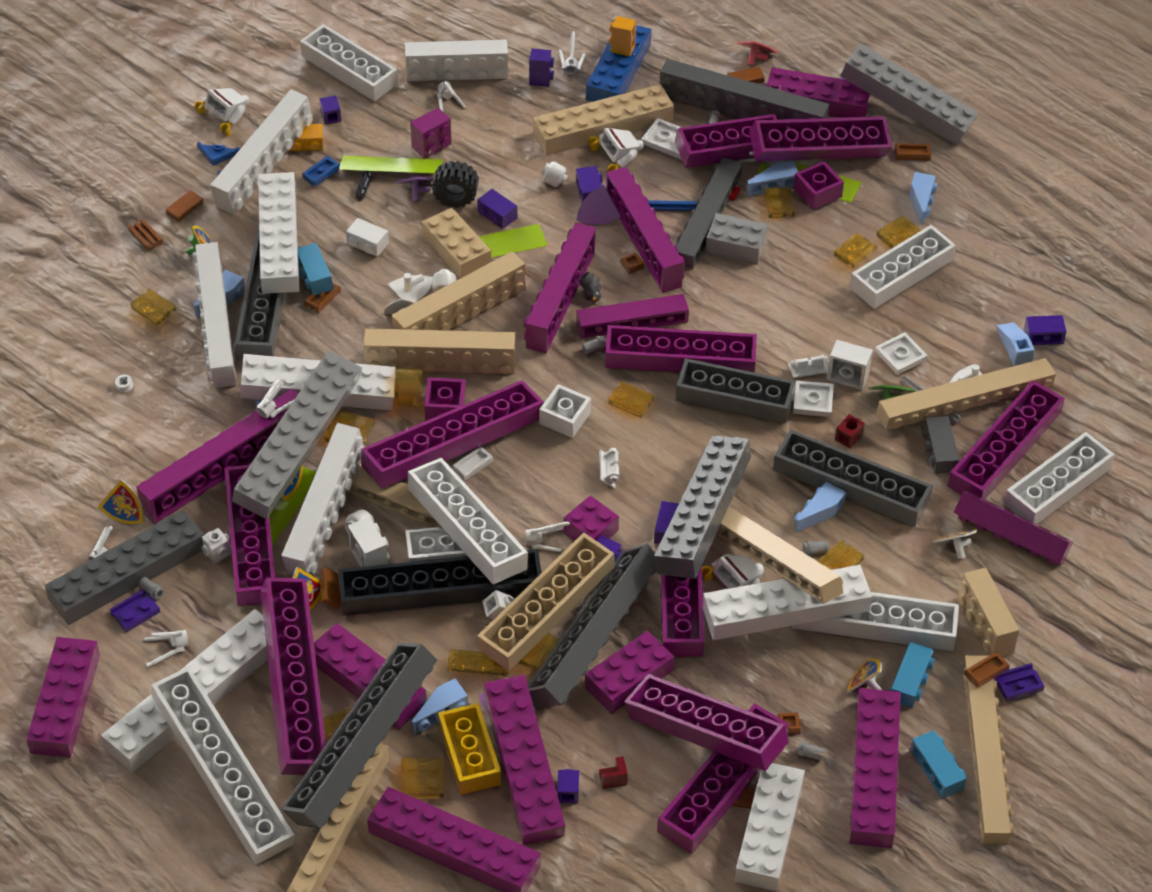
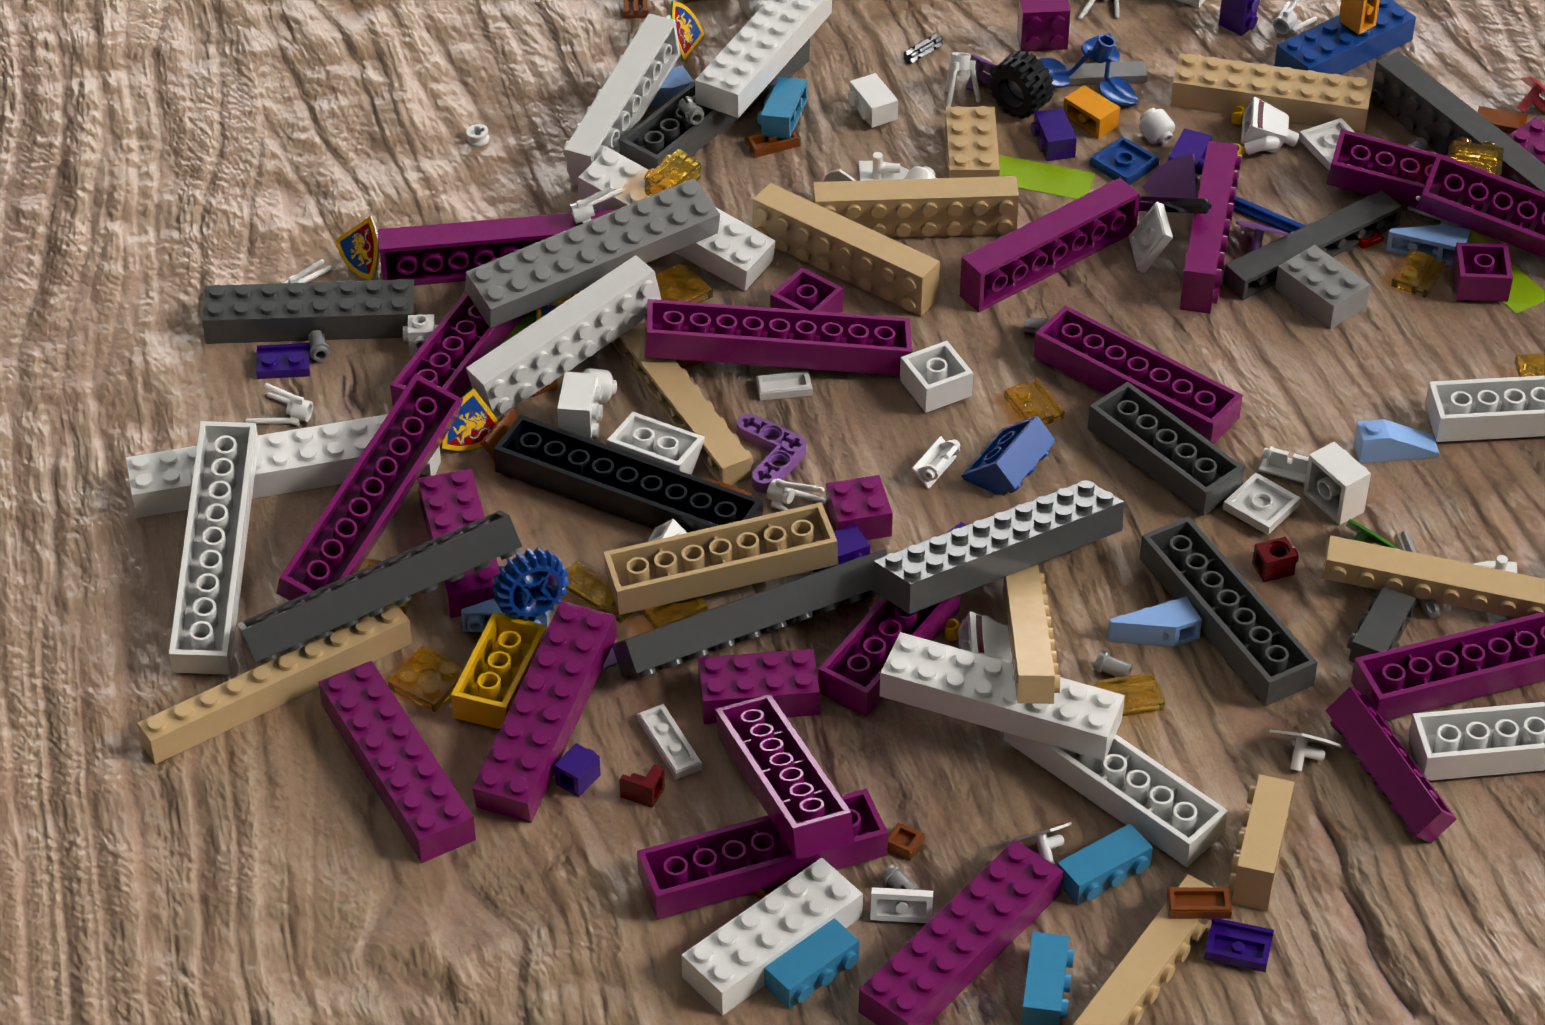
camera: 35 degrees right, 5 degrees down
(63, 697) = (130, 406): magenta brick -> none
(153, 307) = (575, 72): clear yellow plate -> none
(271, 302) = (693, 113): none -> light grey pin
(307, 355) = (671, 172): none -> clear yellow brick
(321, 171) = (886, 14): blue plate -> none
(390, 164) = (963, 35): lime sticker -> none
(407, 387) = (772, 268): clear yellow brick -> none
(408, 187) = (959, 65): none -> white plant
(456, 682) = (530, 584): none -> blue gear
(467, 521) = (701, 429): white brick -> none
(474, 135) = (1101, 50): none -> blue plant
(489, 150) = (1094, 72): none -> light grey tile
(507, 182) = (1091, 111): none -> light orange brick
(508, 508) = (786, 448): none -> medium lavender beam
(551, 207) = (1124, 161): none -> blue tile
(591, 286) = (1092, 261): dark grey animal -> none
(603, 736) = (669, 741): none -> white tile
(615, 253) = (1150, 237): none -> white tile
(622, 225) = (1176, 205): none -> black axle
(632, 263) = (1170, 261): dark orange tile -> none
(639, 313) = (1128, 316): magenta brick -> none
(648, 442) = (1010, 456): none -> blue slope
(671, 220) = (1257, 235): none -> medium lavender shield
(774, 110) = (1482, 156): none -> clear yellow brick
(806, 830) = (811, 963): none -> dark azure brick
(824, 764) = (901, 905): none -> white plate
(852, 322) = (1390, 441): none -> light blue slope
(855, 250) = (1469, 364): clear yellow plate -> none
(901, 353) = (1424, 505): white plate -> none

